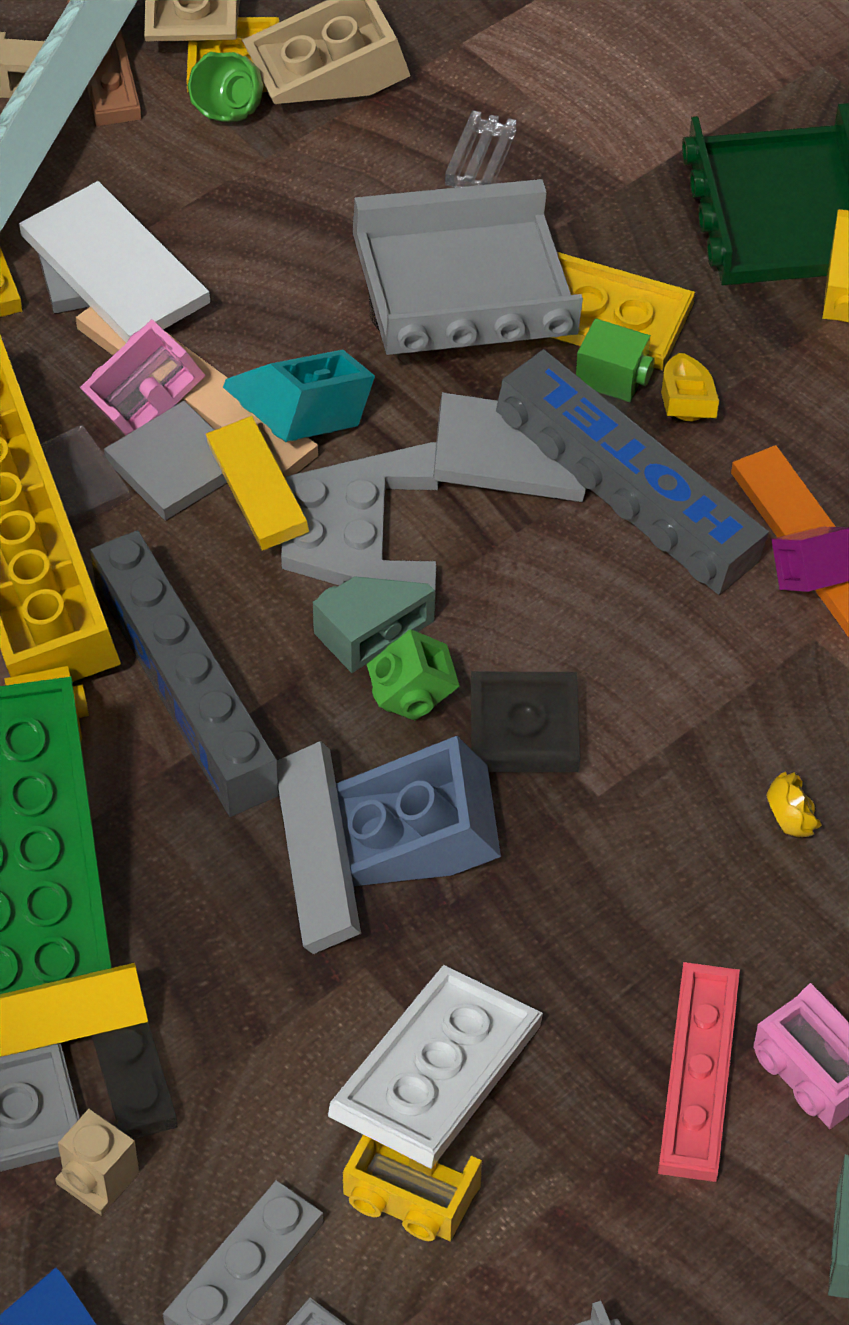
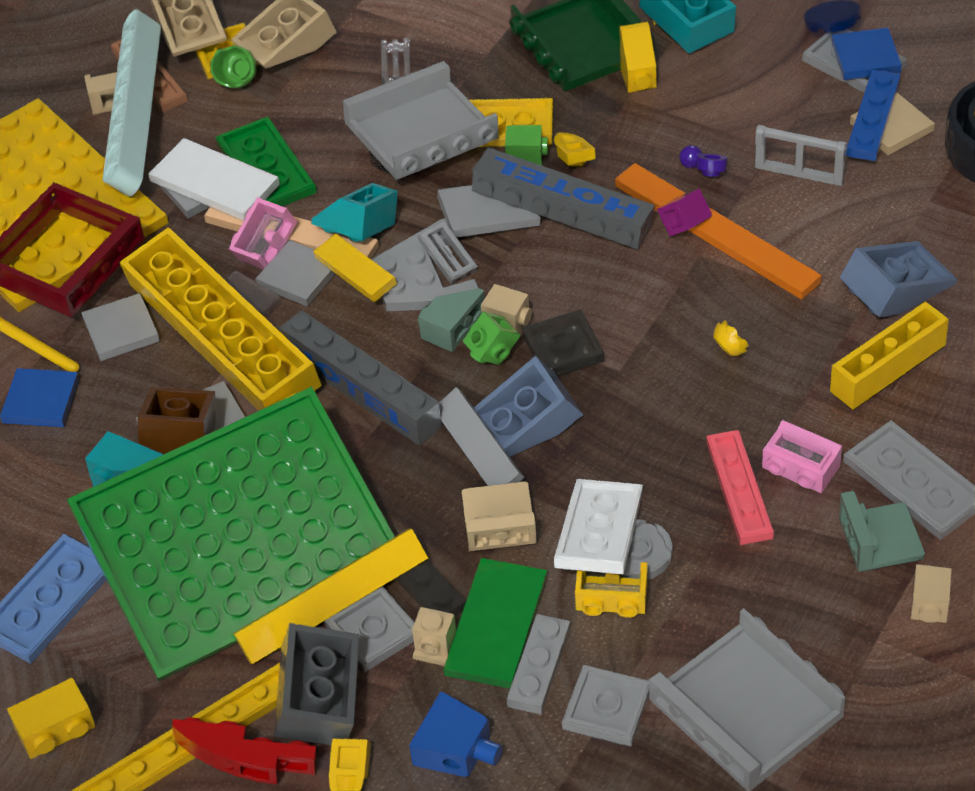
camera: 15 degrees left, 5 degrees down
(207, 1170) = (495, 623): none -> green tile
(214, 241) = (264, 148): none -> green tile
(290, 987) = (498, 516): none -> tan bracket
(423, 541) = (460, 272): none -> light grey tile
(465, 627) = (510, 304): none -> tan brick
(502, 1132) = (648, 545): none -> light grey tile

